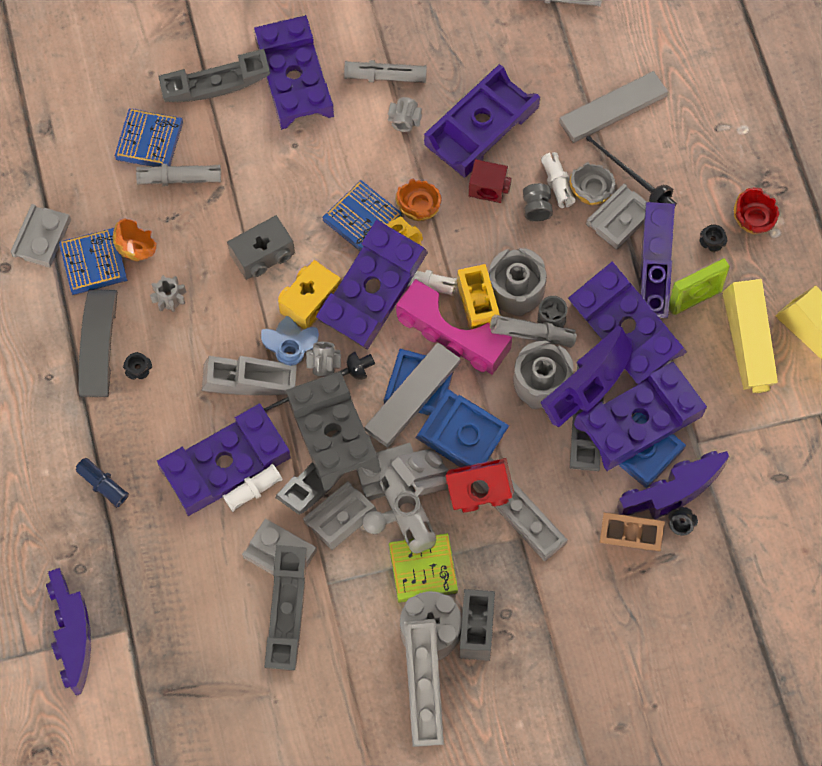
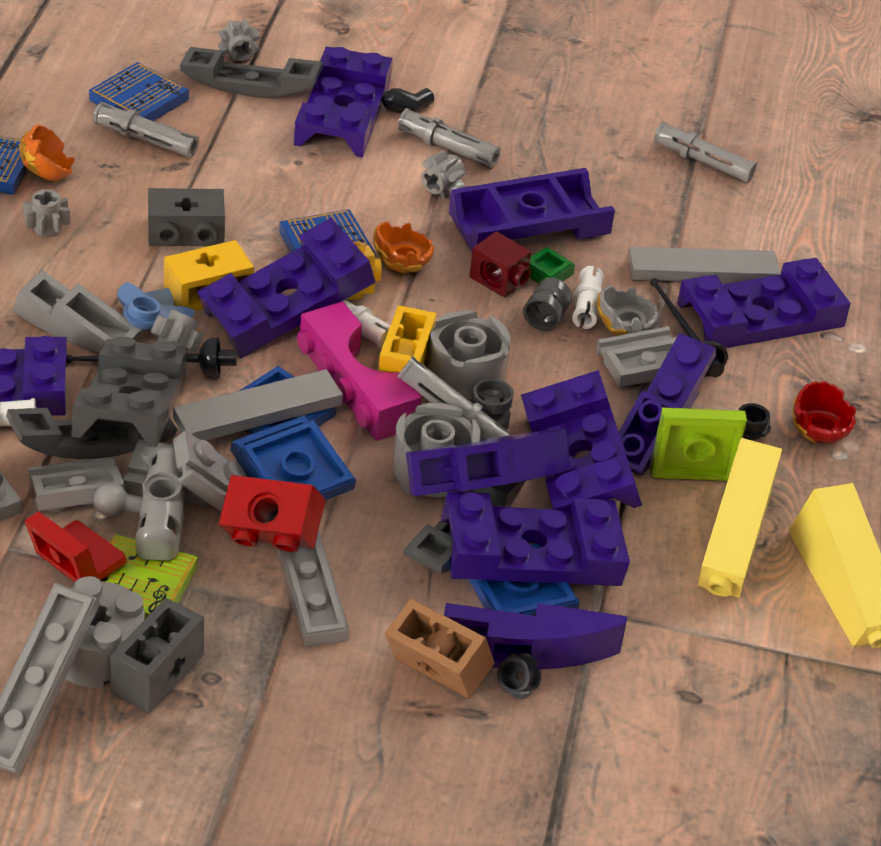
camera: 20 degrees right, 25 degrees down
(187, 50) = (239, 40): none -> light grey gear
(334, 49) = (400, 99): none -> black arm
(376, 569) = (74, 548): none -> red panel
(517, 162) = (550, 265): none -> green tile
(687, 106) = (797, 303): none -> dark purple piece

